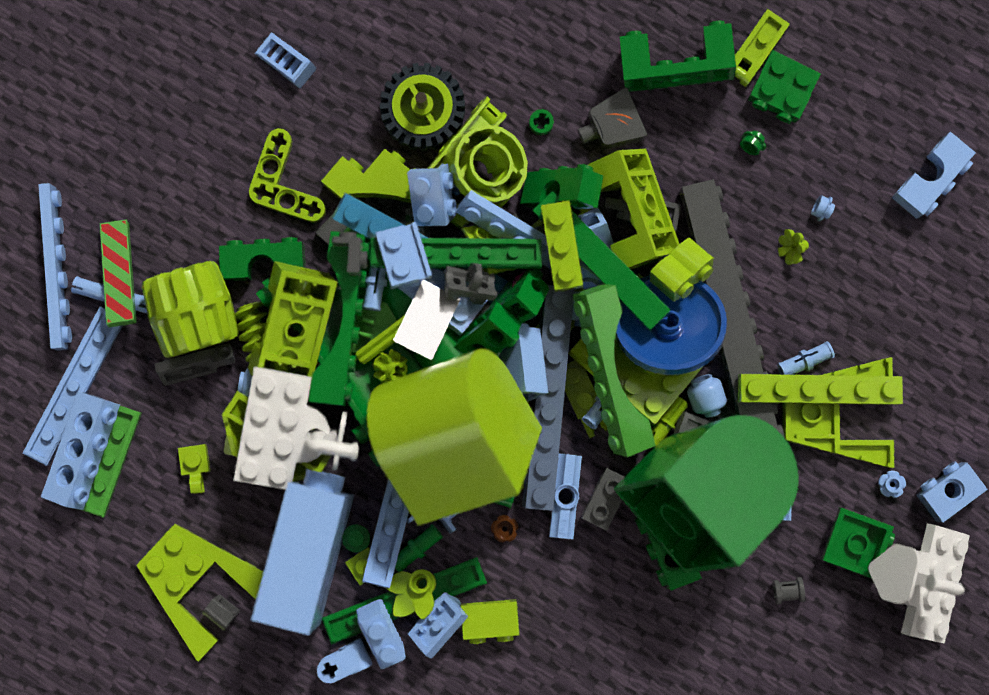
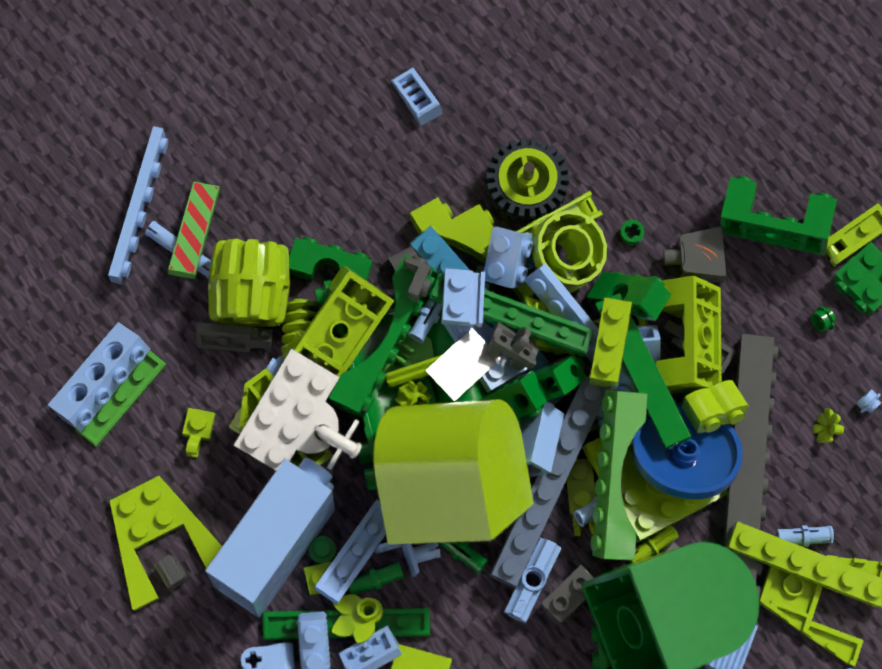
camera: 20 degrees right, 10 degrees down
(76, 378) = (122, 310): light blue tile -> none
(272, 181) = (364, 199): lime beam -> none
(511, 525) = (459, 585): reddish brown plate -> none
(706, 395) = (698, 529): light blue head -> none

